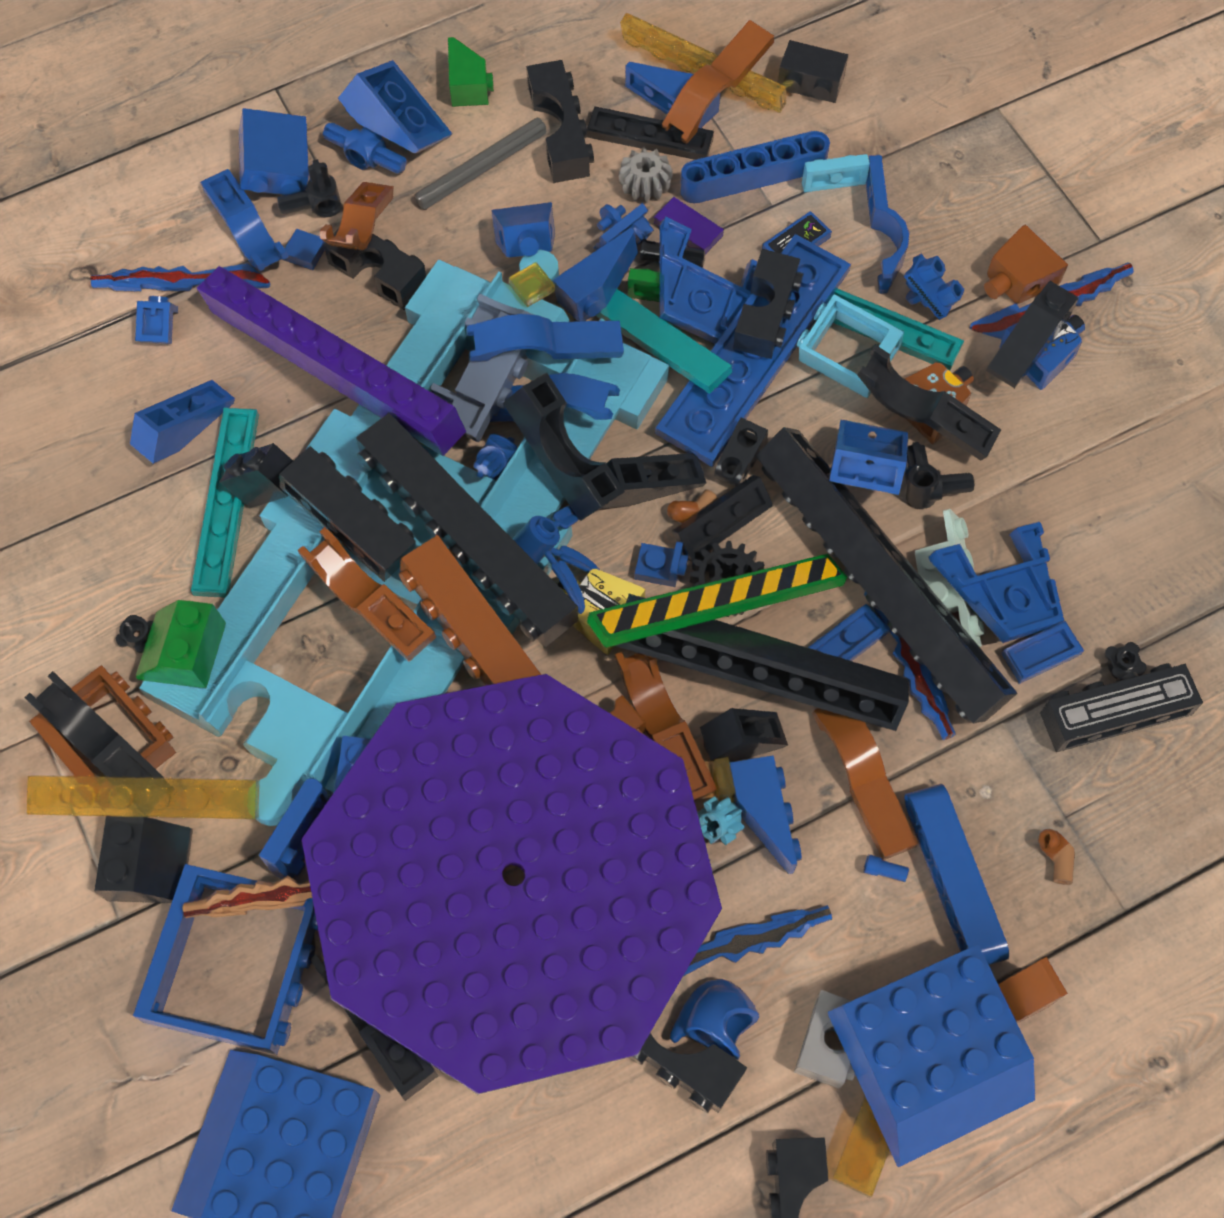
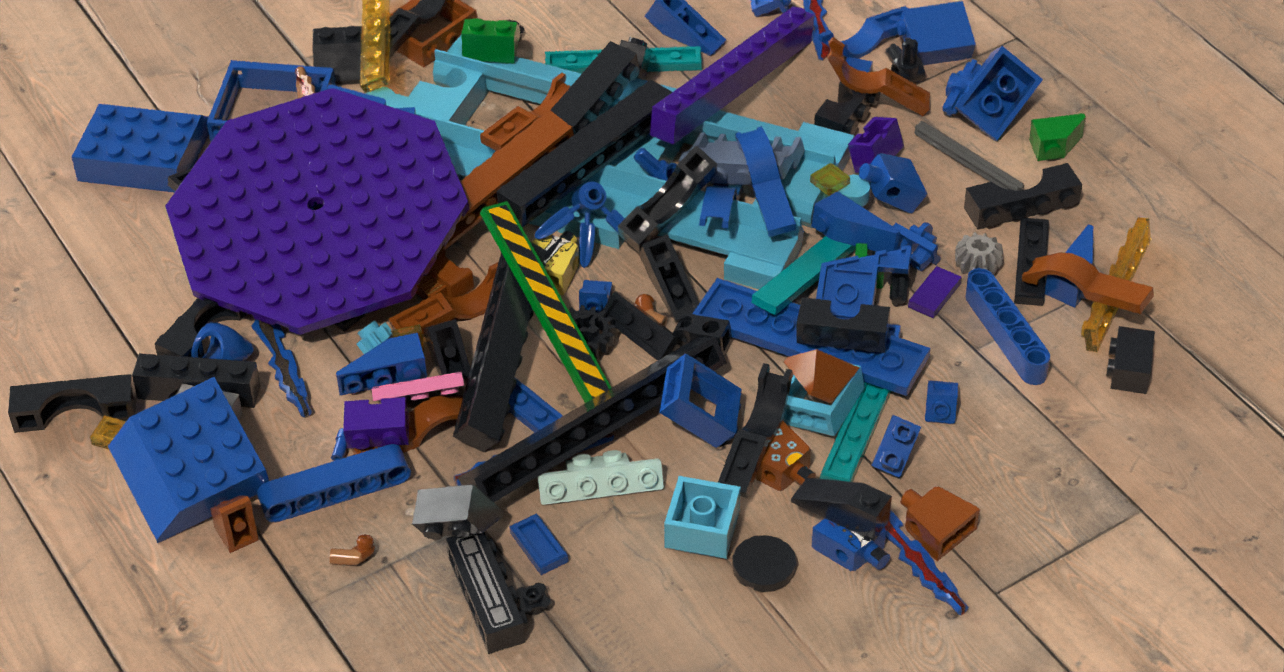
camera: 85 degrees right, 20 degrees down
(460, 239) = (879, 136): none -> dark purple brick
(778, 1053) = (161, 375): none -> black arch
(807, 227) = (943, 366): tile -> none
(819, 766) = (420, 387): none -> bright pink plate
(835, 173) = (1018, 387): medium azure plate -> none
(852, 331) = (821, 373): none -> dark orange slope
(854, 239) = (941, 402): none -> blue bracket
(884, 816) = (376, 424): none -> dark purple brick
(886, 221) = (980, 414): blue piece -> none
(926, 483) = (691, 453): black axle -> none
(1011, 599) = (582, 514): blue wing -> none
(1027, 476) = (702, 517): none -> medium azure brick
(1042, 724) = (454, 512): none -> slope
(1070, 433) = (764, 563): none -> black tile

